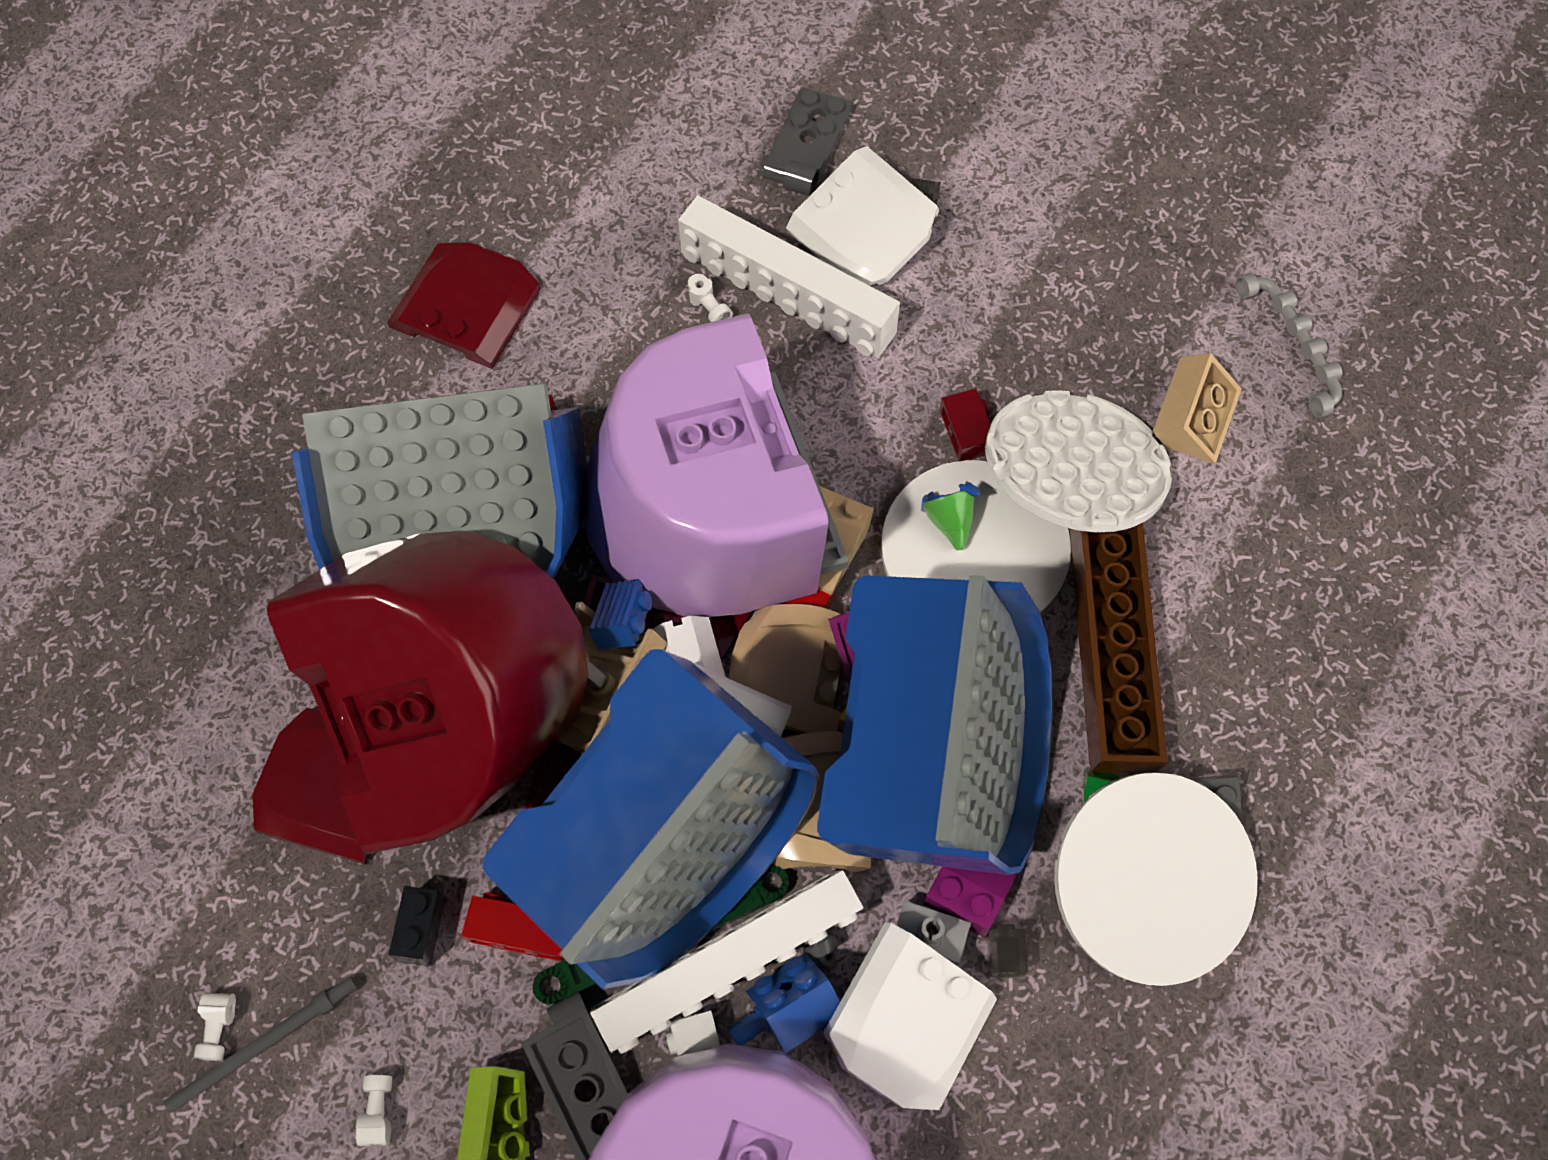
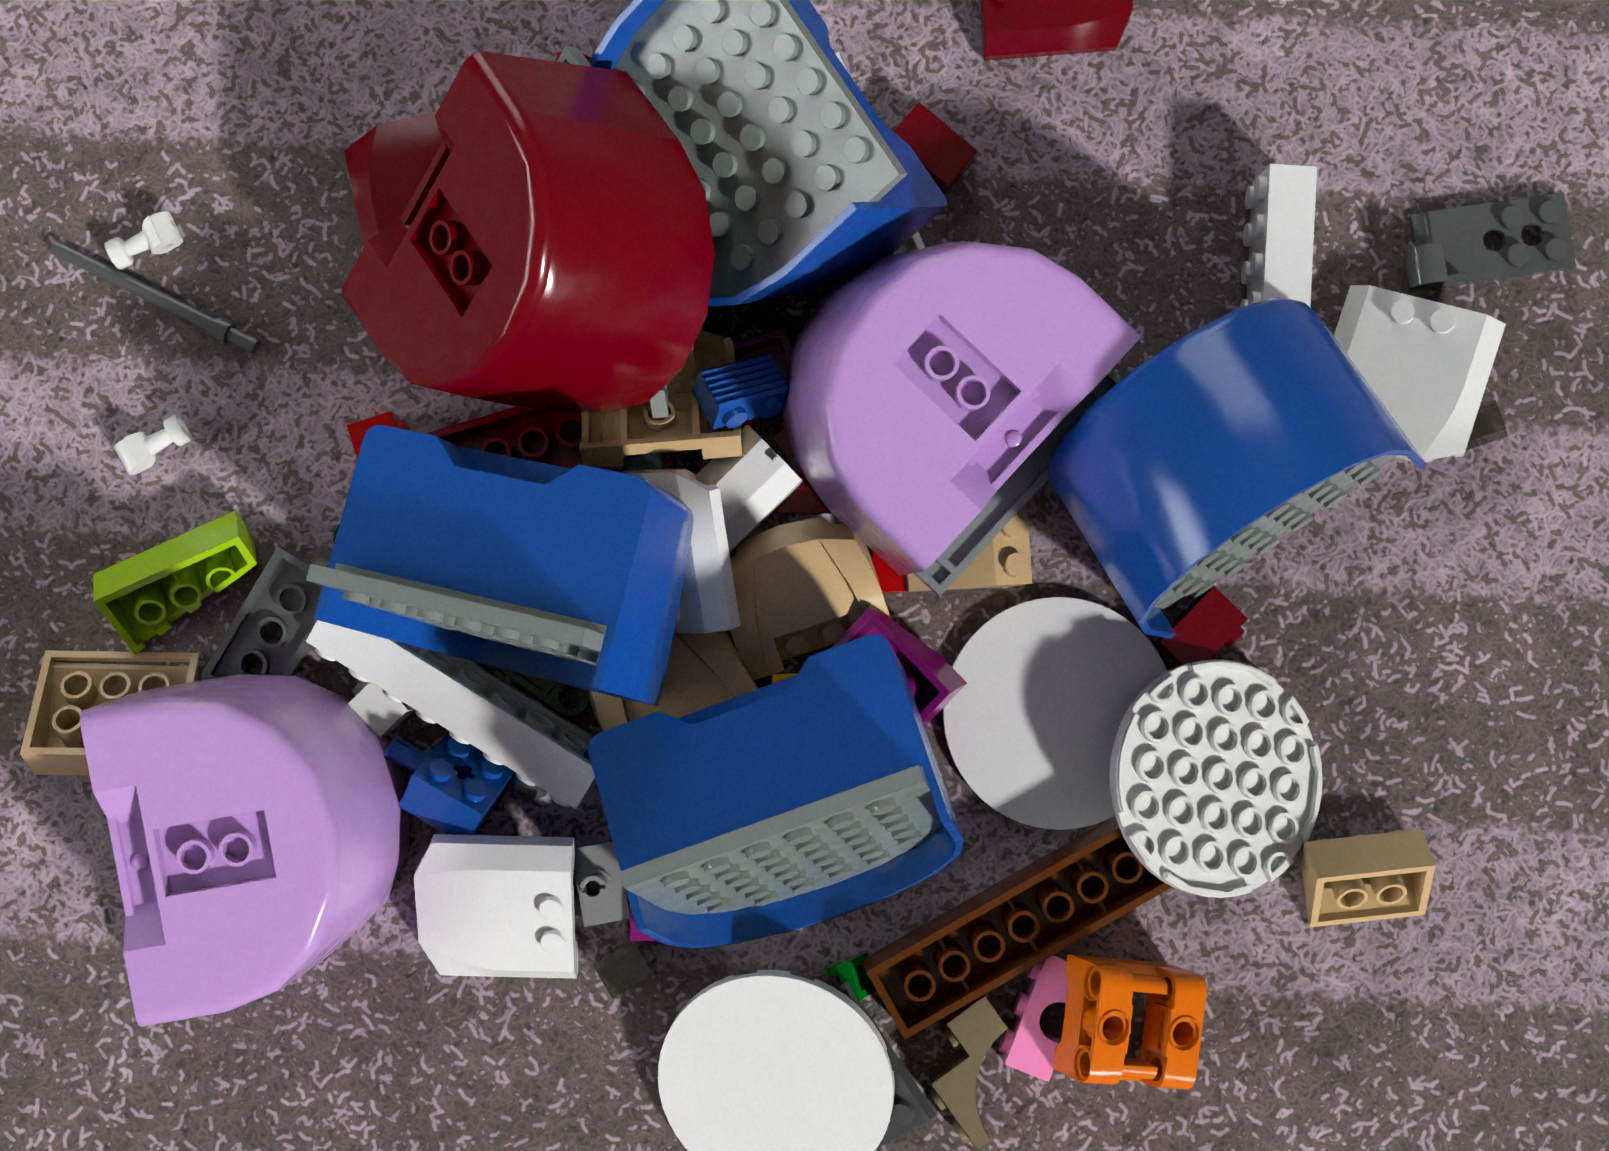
camera: 60 degrees right, 20 degrees up
(417, 926) = (336, 374): black brick -> none
(701, 292) = (1207, 239): white leg -> none
(855, 327) = (1220, 453): none -> blue piece
(952, 513) = (1076, 670): bright green hat -> none
(1211, 685) = (1026, 1044): none -> bright pink arch
(1217, 749) = (954, 1084): none -> dark tan arch
(1230, 599) = (1102, 994): none -> orange piece
(1322, 403) = (1545, 943): light grey bar -> none

